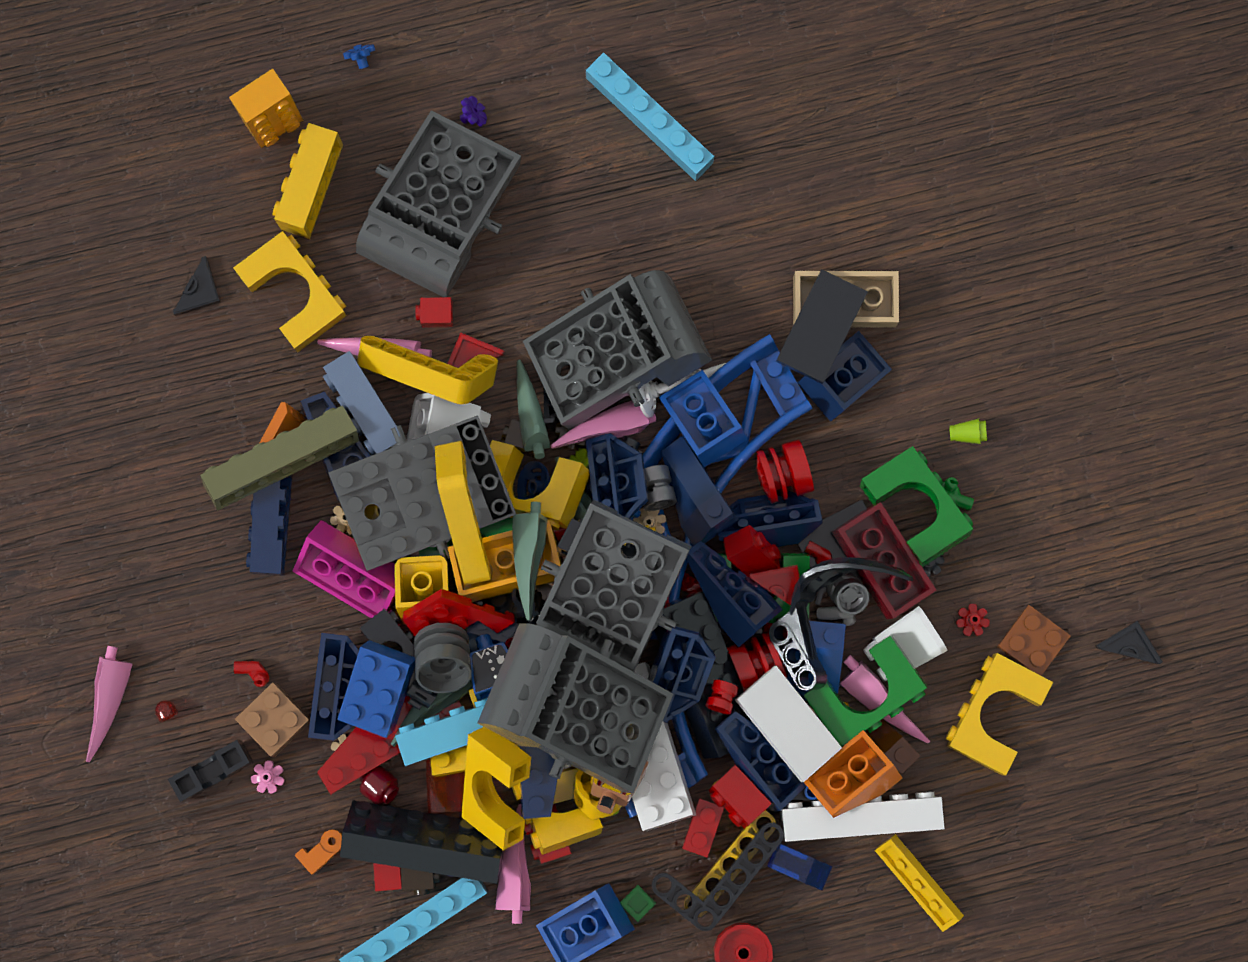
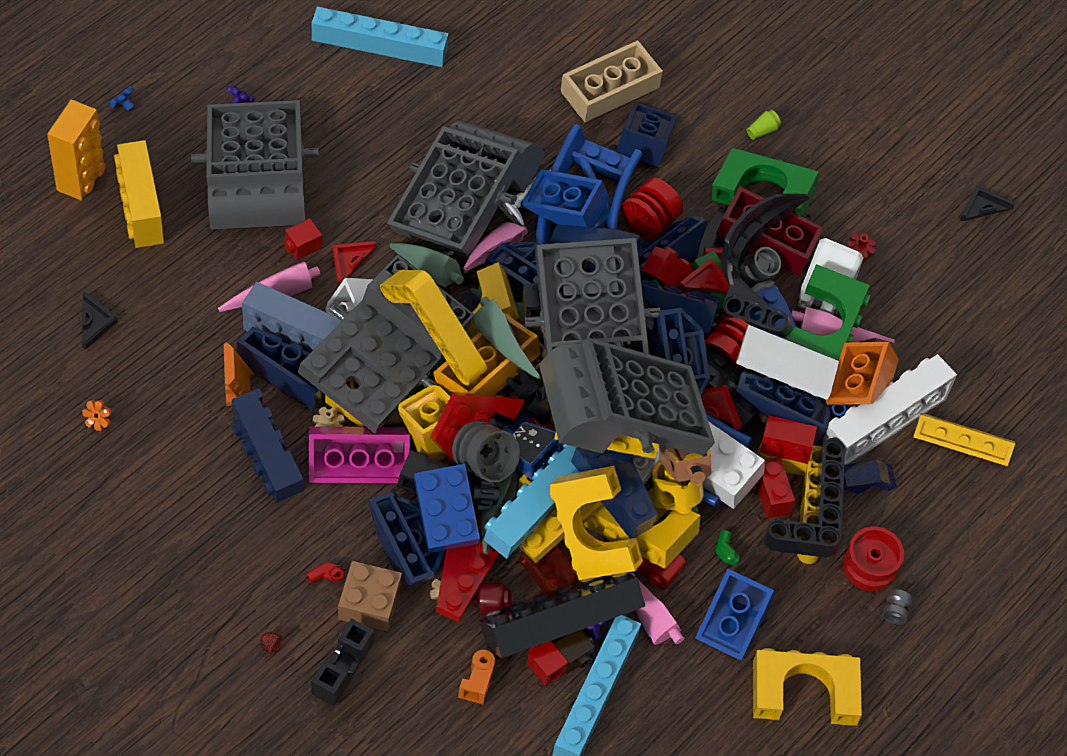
camera: 40 degrees left, 25 degrees down
(109, 690) = (208, 653): bright pink piece -> none
(144, 397) = (97, 415): none -> orange plant
(273, 777) = (393, 648): bright pink plant -> none
(279, 457) = (250, 379): olive brick -> none
(282, 256) = (154, 259): yellow arch -> none
(428, 374) = (323, 269): yellow beam -> none
(618, 859) = (724, 550): none -> green arm
(637, 903) = (764, 573): green tile -> none
(698, 726) = (719, 404): none -> red tile
(722, 696) = (725, 365): red wheel -> none
(821, 326) = (610, 96): black tile -> none
(969, 735) = (921, 319): yellow arch -> none
(1033, 640) = (915, 237): dark orange plate -> none

